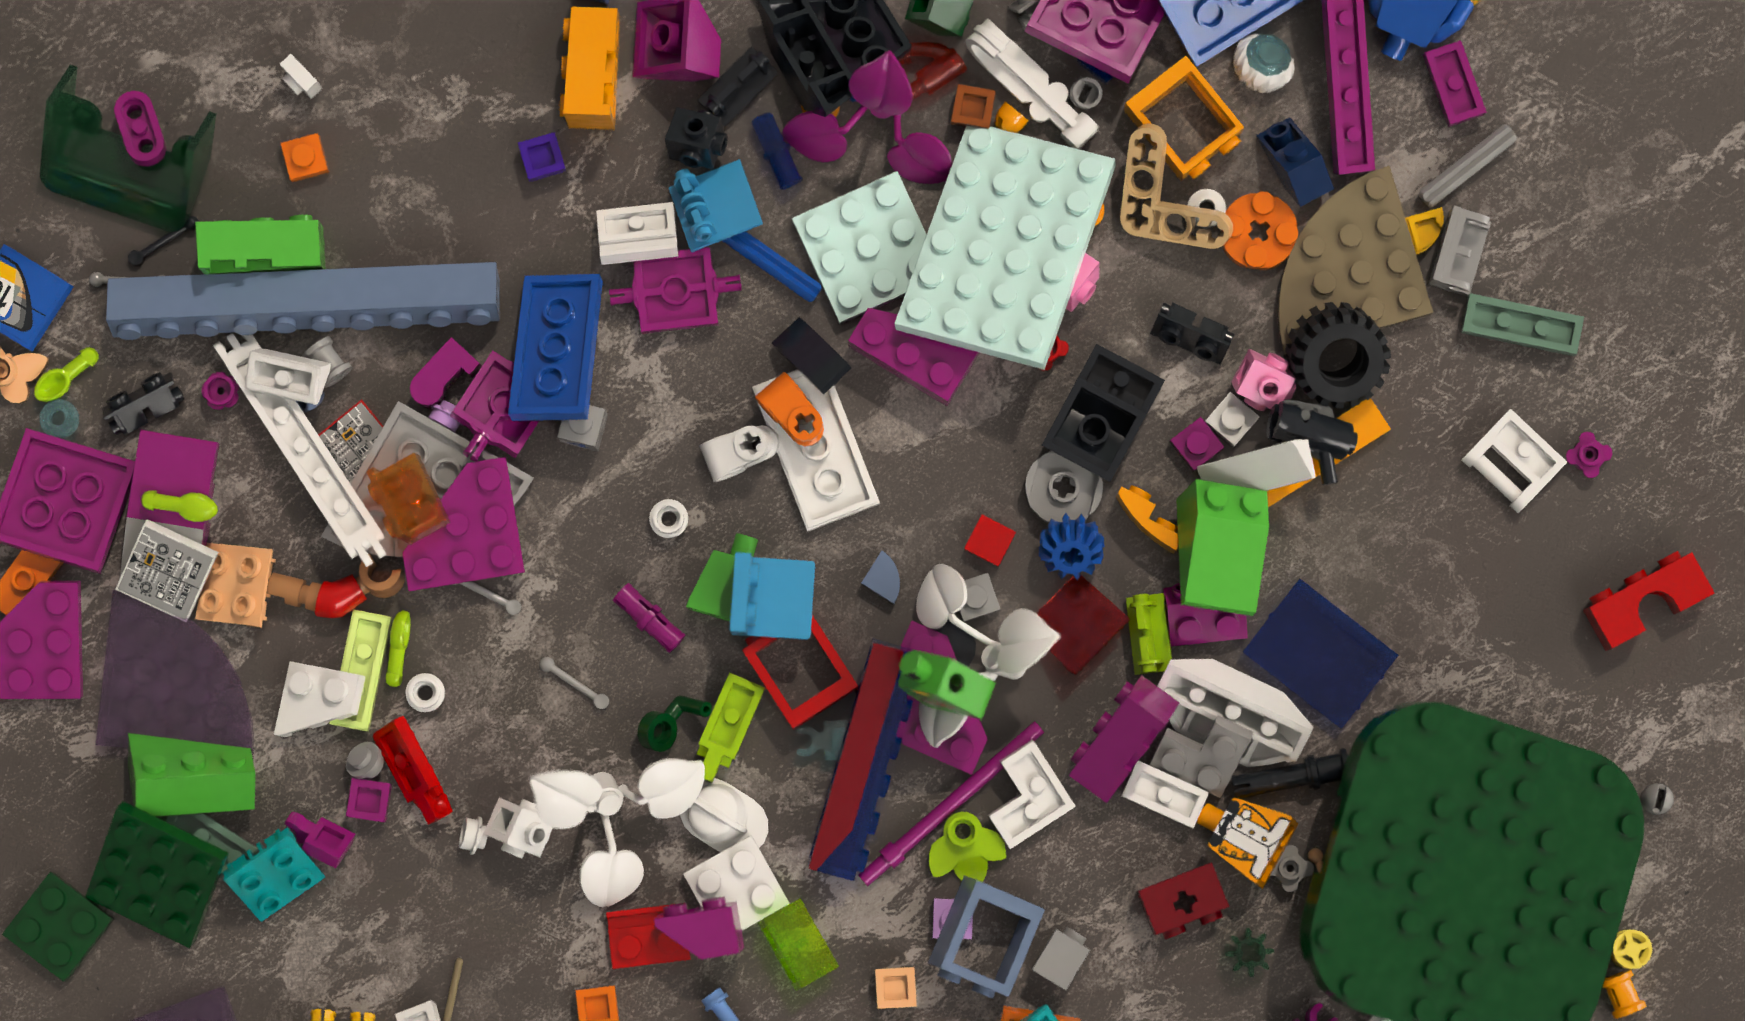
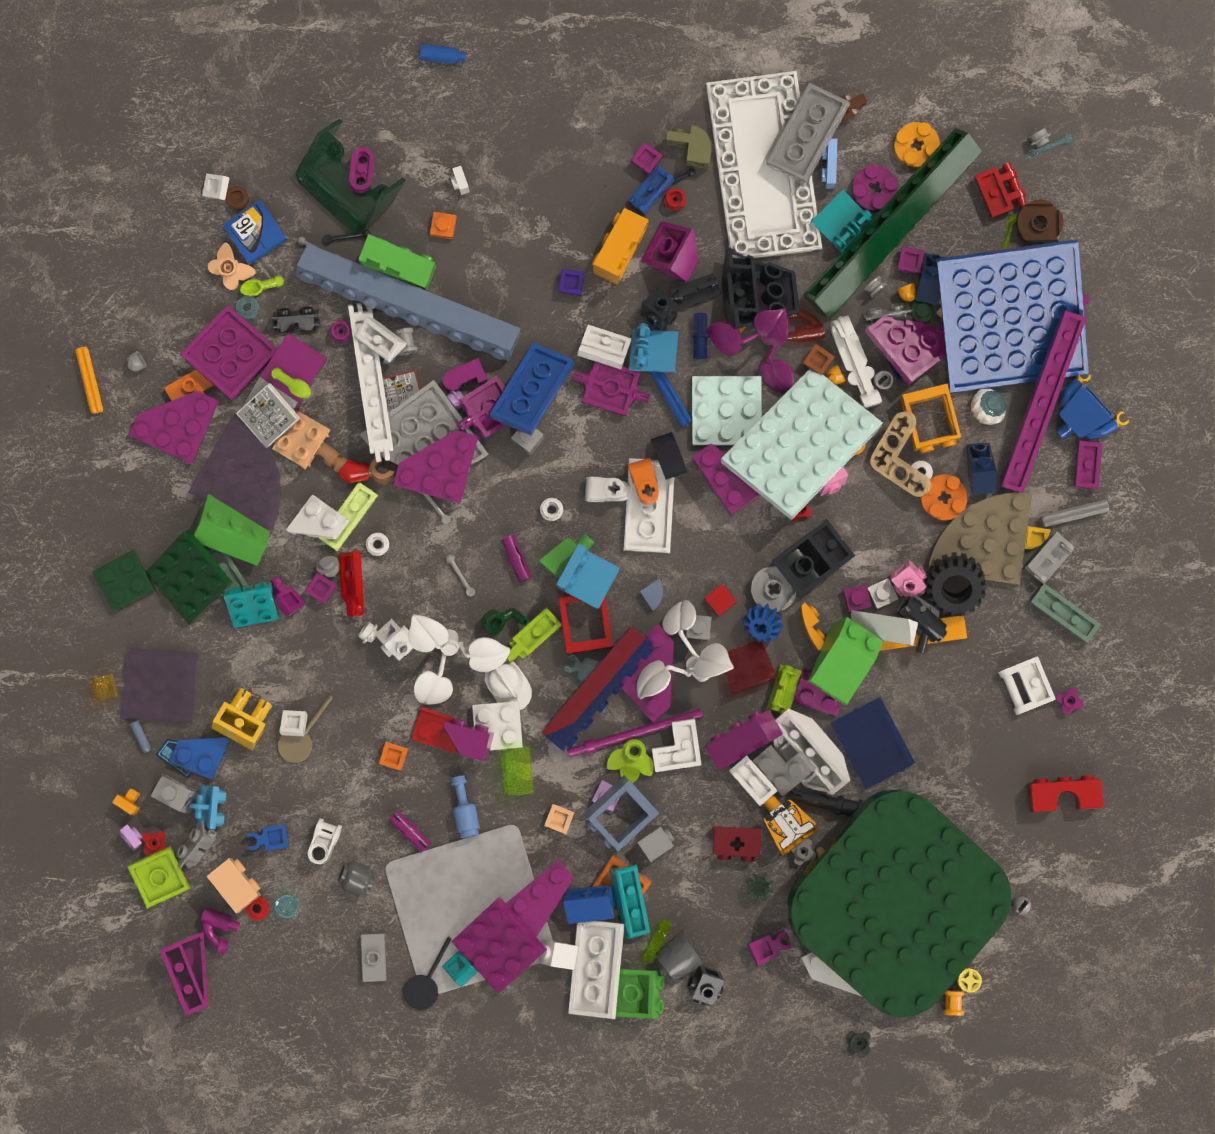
camera: 25 degrees right, 0 degrees up
(398, 643) = (376, 509): lime piece -> none
(407, 499) = (414, 435): clear orange bracket -> none
(928, 679) = (651, 658): bright green torso -> none
(1176, 328) = (874, 529): black hinge -> none

